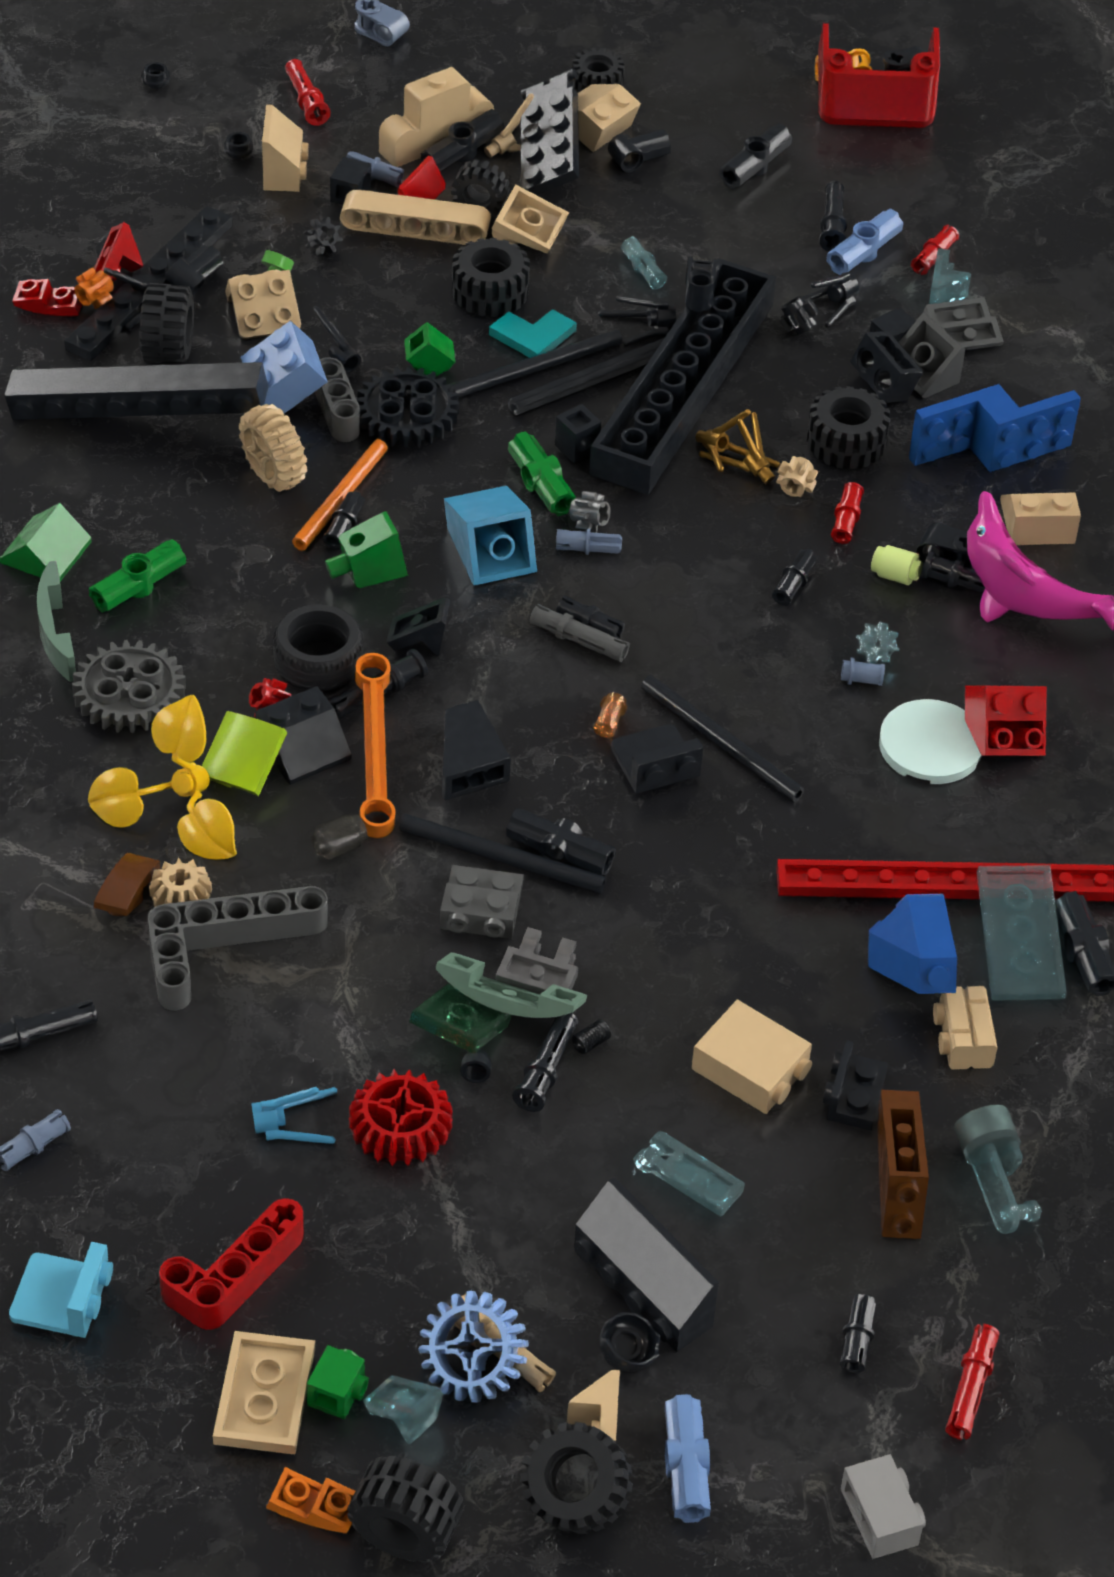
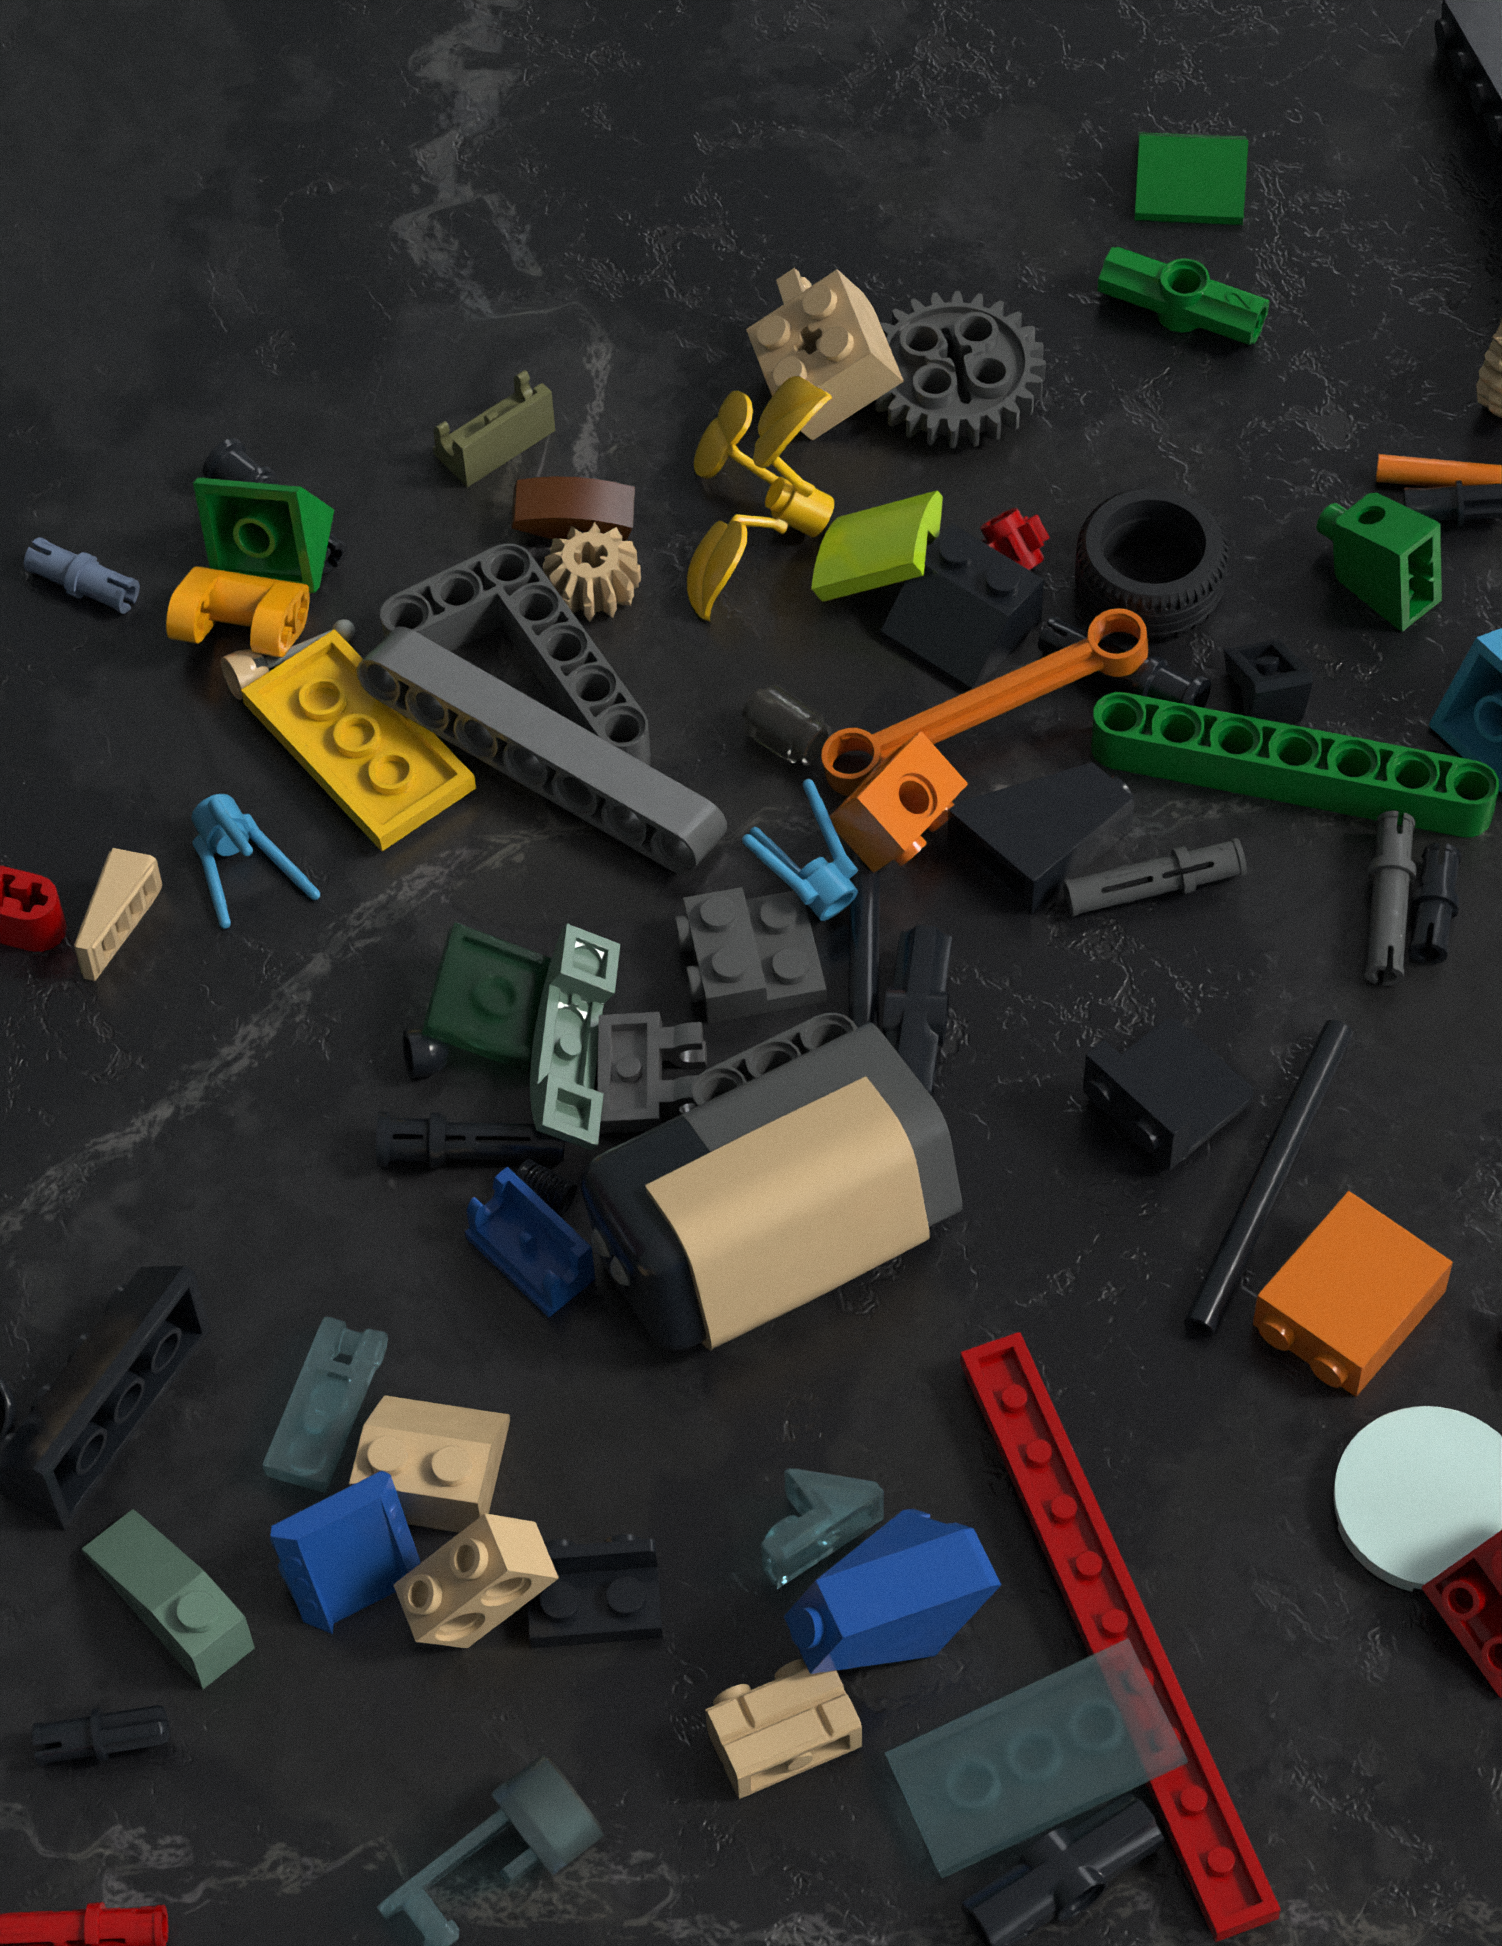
camera: 75 degrees right, 10 degrees up
(42, 904) = (497, 433): none -> olive hinge
(57, 646) = (1085, 206): sand green slope -> none
(71, 1029) = (264, 529): none -> green slope
(81, 712) = (828, 339): none -> tan hinge
(100, 1070) = (269, 606): none -> light orange connector
(155, 1068) = (245, 666): none -> tan hinge
(238, 1034) = (360, 751): none -> yellow plate
(300, 944) = (542, 750): none -> dark grey beam
(302, 1183) = (118, 903): none -> tan slope
(382, 1103) = (242, 994): red gear -> none
(427, 797) = (898, 803): none -> orange brick
(459, 851) = (819, 884): none -> dark azure plant
(477, 641) = (1270, 746): none -> green beam
(520, 706) = (1223, 861): none -> dark grey pin
(612, 709) = (1230, 998): clear orange pin -> none
(628, 1049) = (530, 1244): none -> blue hinge
(656, 904) = (775, 1186): none -> piece
(749, 1133) = (437, 1456): none -> tan slope
(752, 1057) = (585, 1420): tan brick -> none
(785, 1275) = (172, 1597): none -> sand green slope
(794, 1180) = (345, 1551): none -> blue slope
(809, 726) = (1351, 1294): none -> orange brick
(844, 1121) = (475, 1581): none -> tan brick
(852, 973) = (831, 1513): none -> clear light blue slope
(901, 1164) = (446, 1696): reddish brown slope -> none

